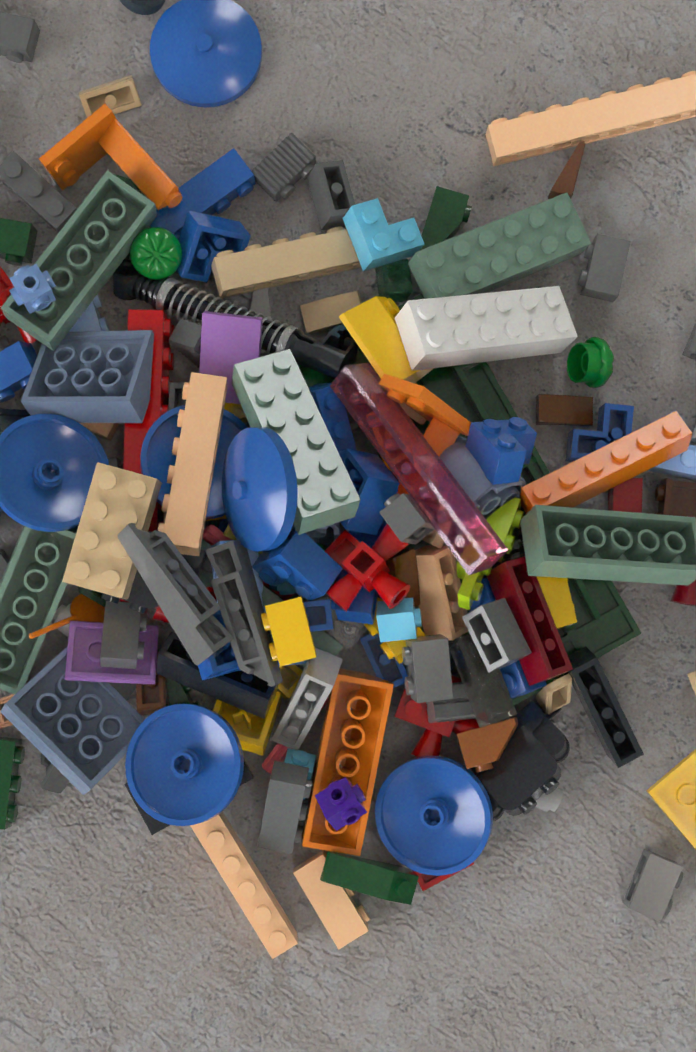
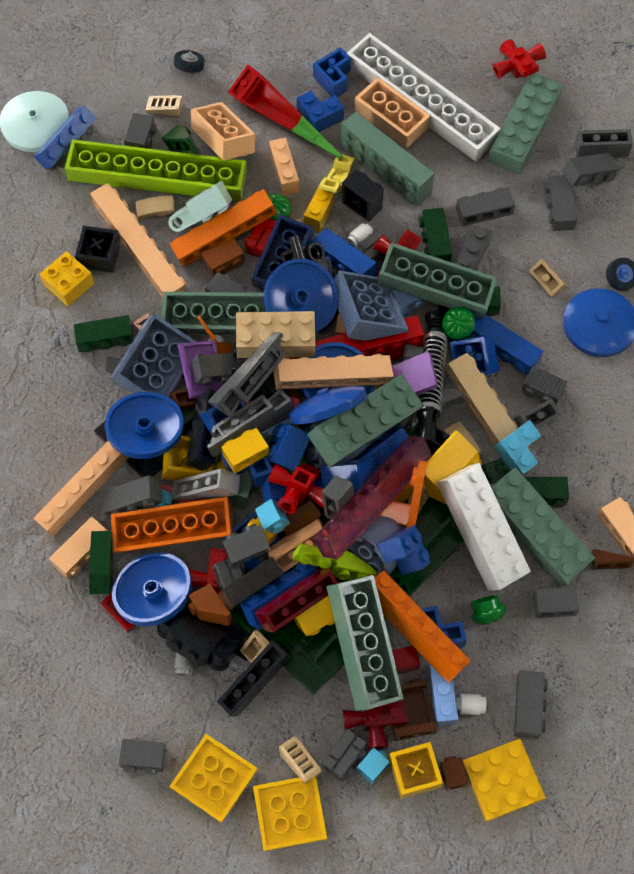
camera: 75 degrees right, 20 degrees down
(39, 295) = (407, 253): medium blue brick -> none
(102, 135) = (512, 270): orange piece -> none
(342, 803) = (144, 523): dark purple brick -> none
(496, 635) = (281, 577): dark grey brick -> none
(564, 410) = (449, 603): reddish brown slope -> none

